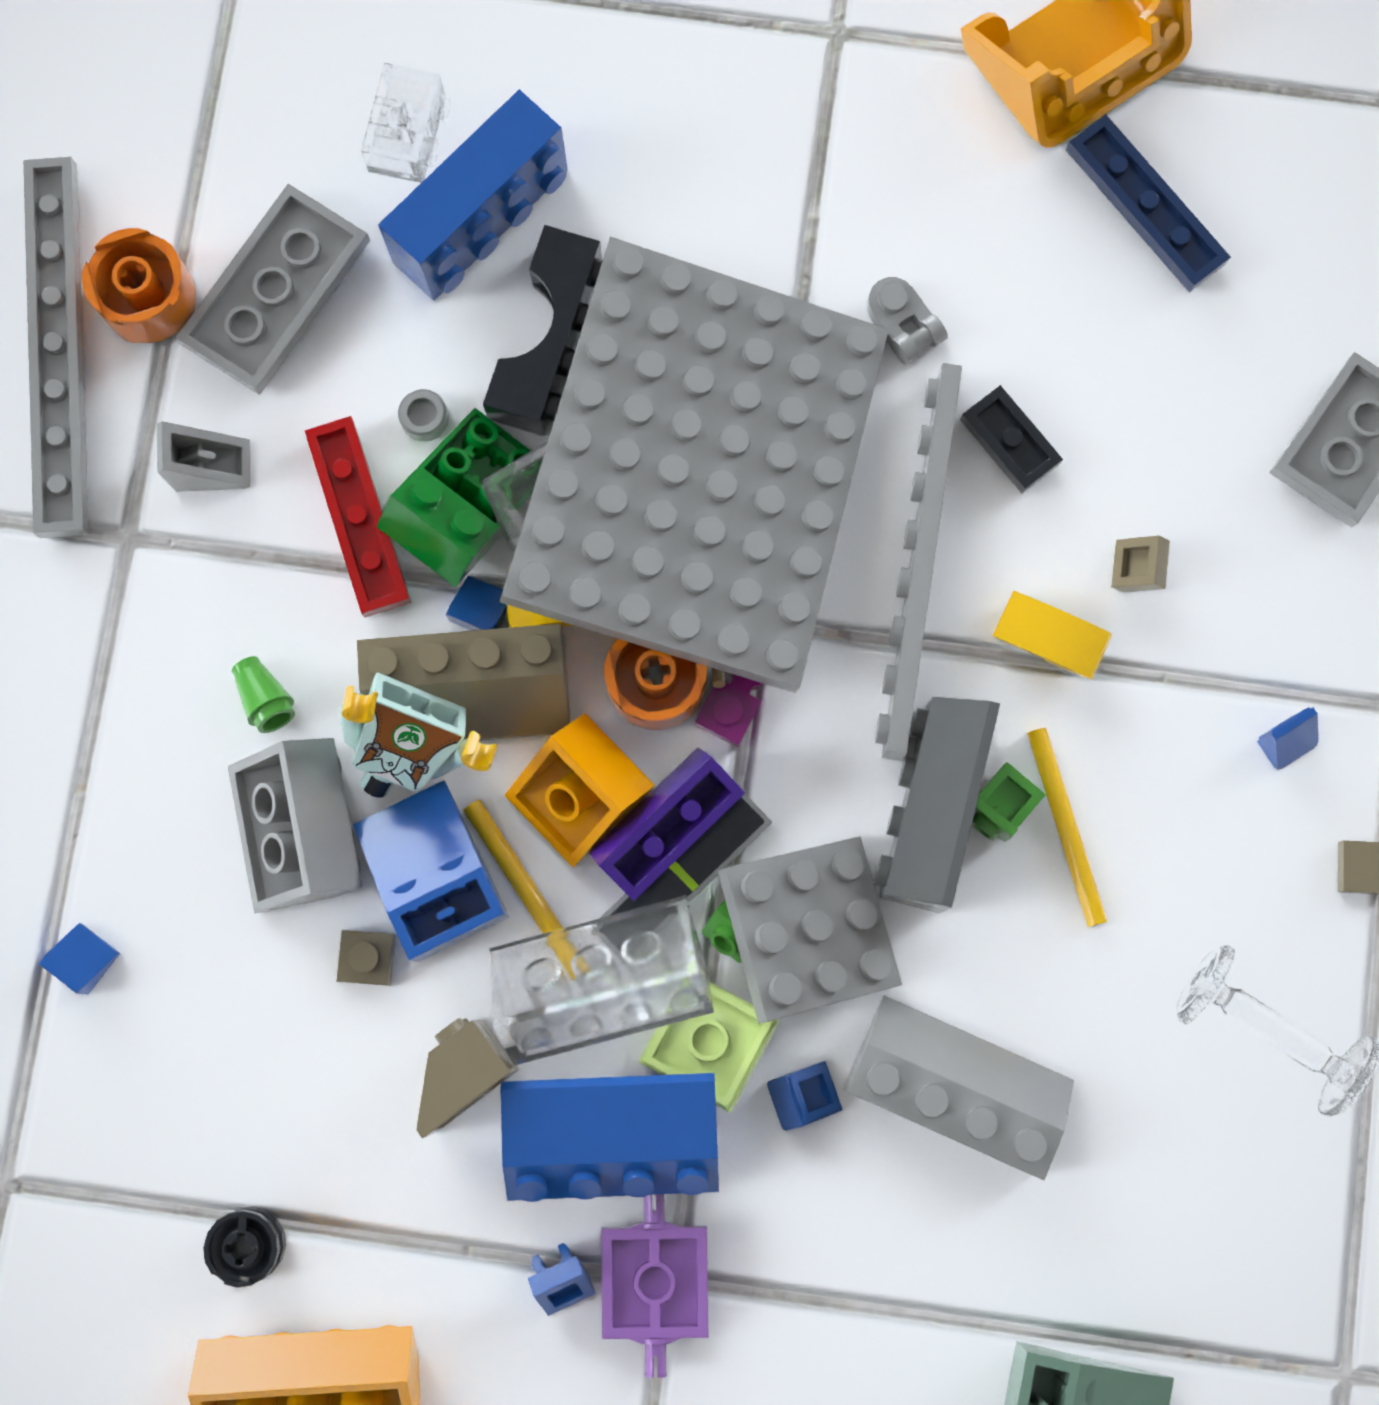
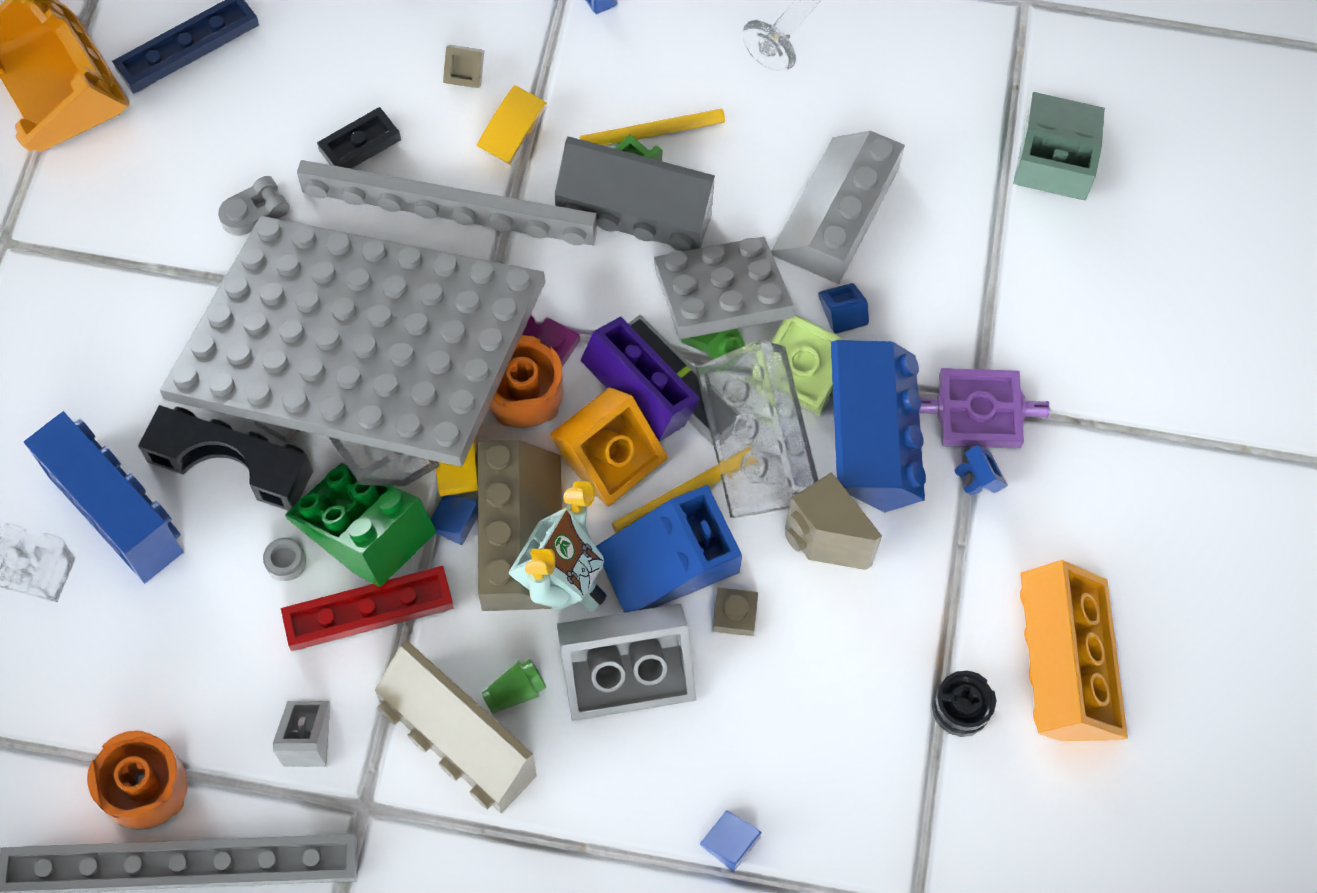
camera: 90 degrees left, 15 degrees down
(201, 630) = (455, 729): none -> slope
(273, 288) = (155, 674): light grey plate -> none

